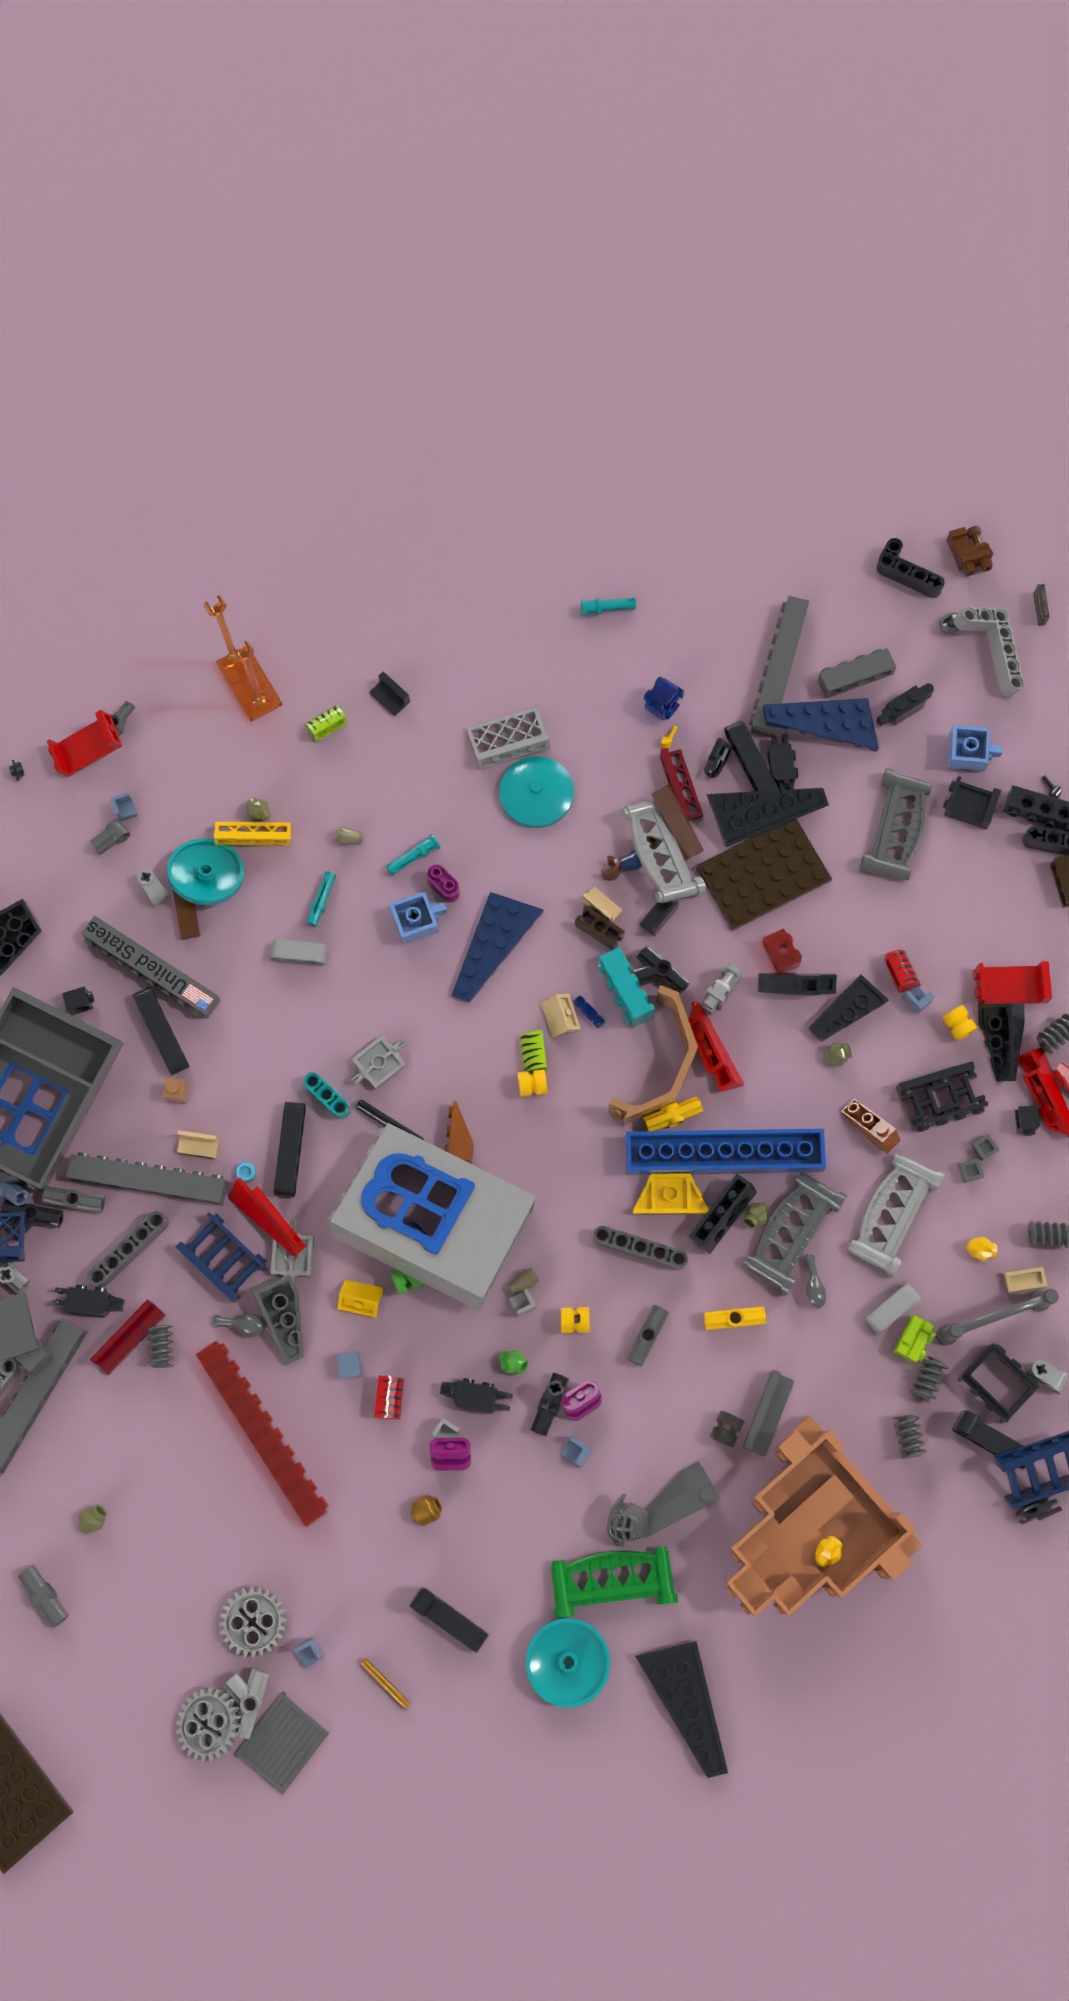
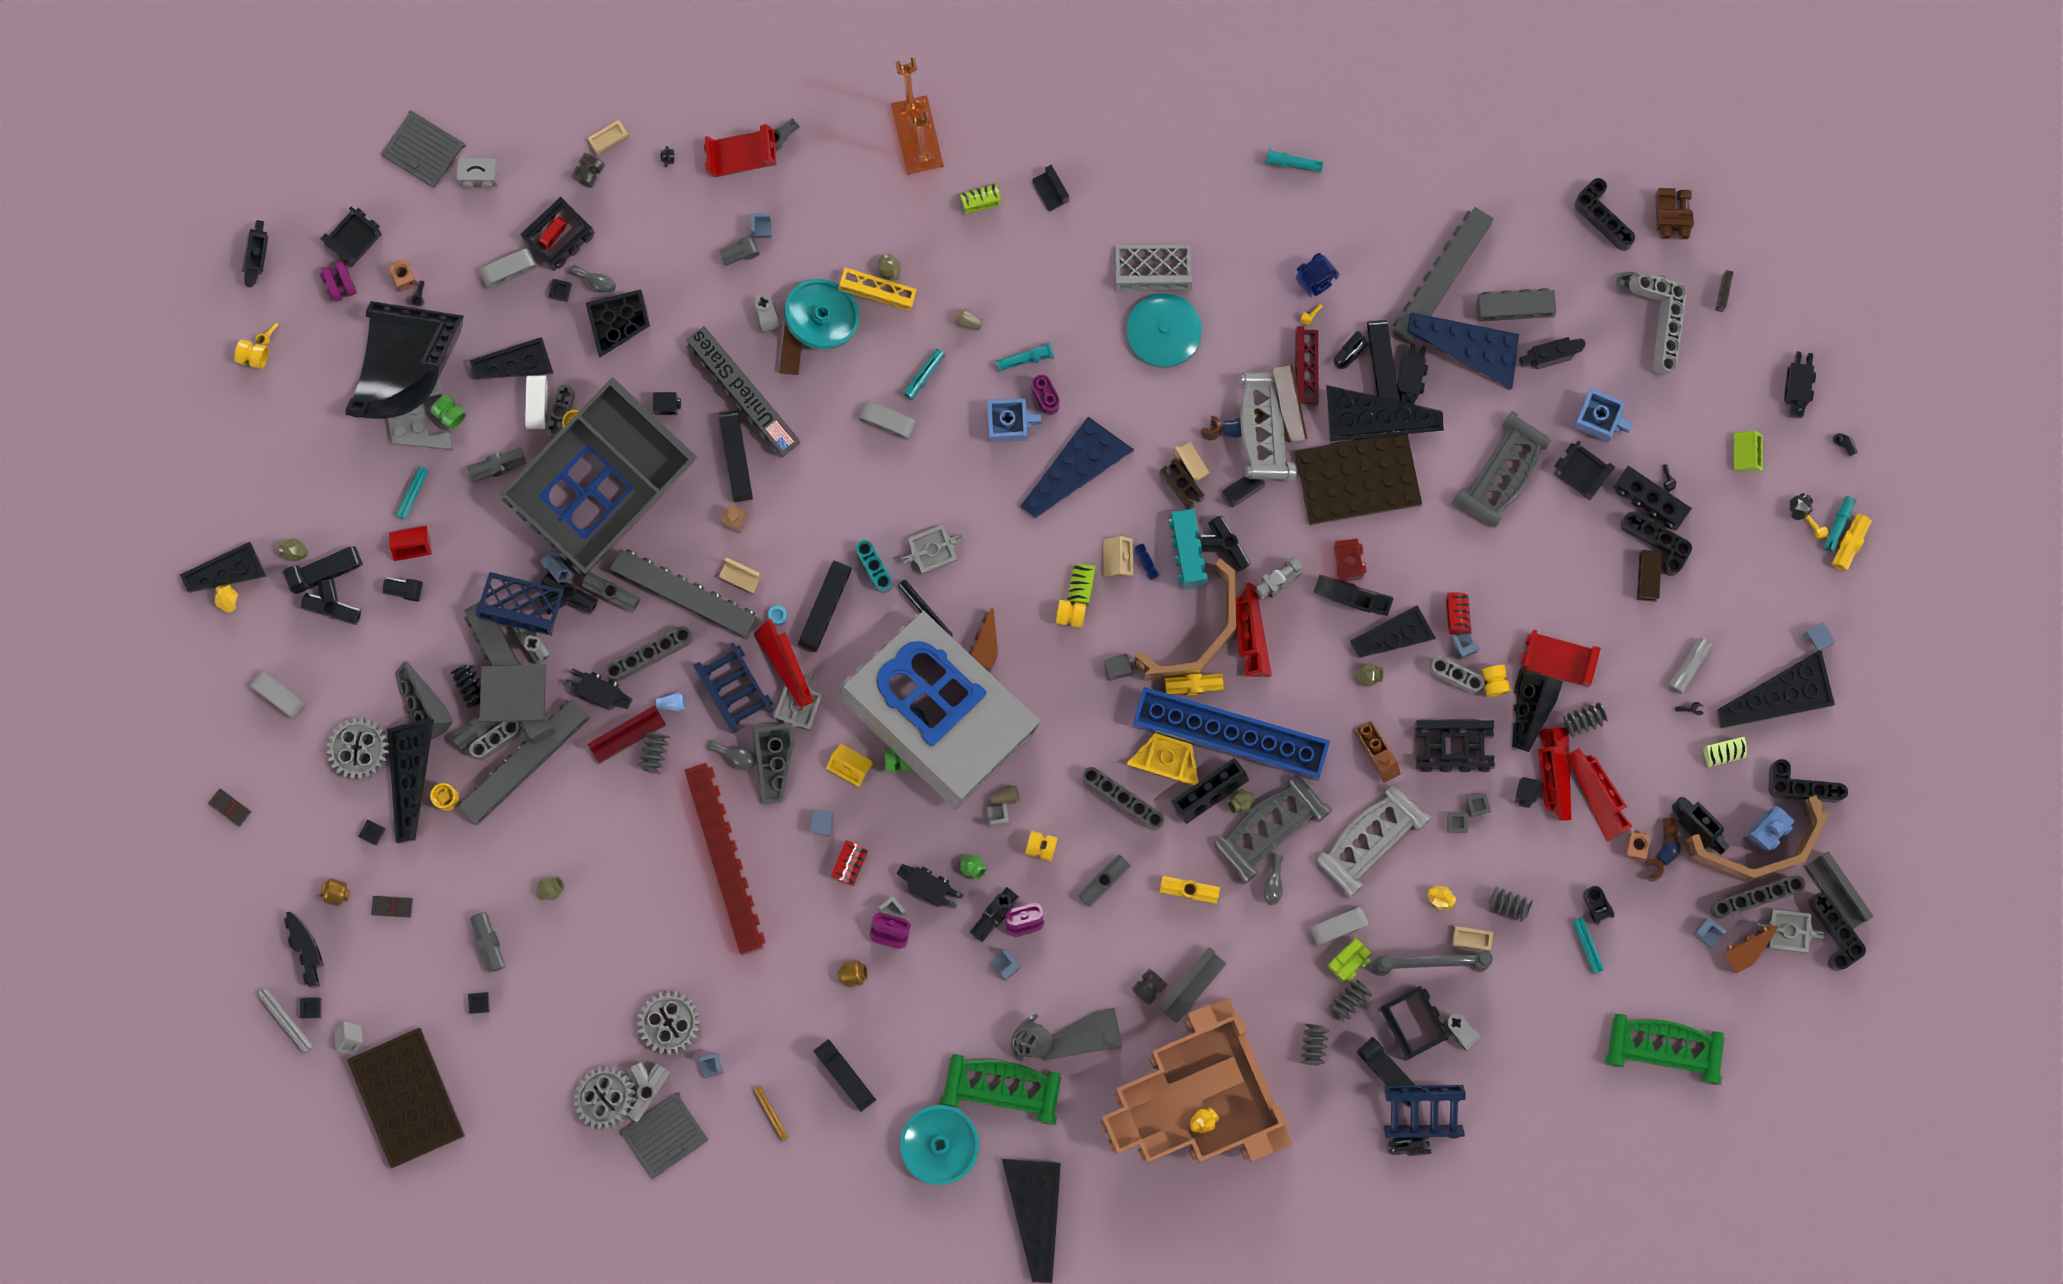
camera: 15 degrees right, 5 degrees up
(51, 1663) = (478, 1003): none -> black tile
(165, 1290) = (671, 702): none -> light blue cone
(595, 1120) = (1119, 667): none -> dark grey brick
(929, 1025) = (1446, 675): none -> light grey beam

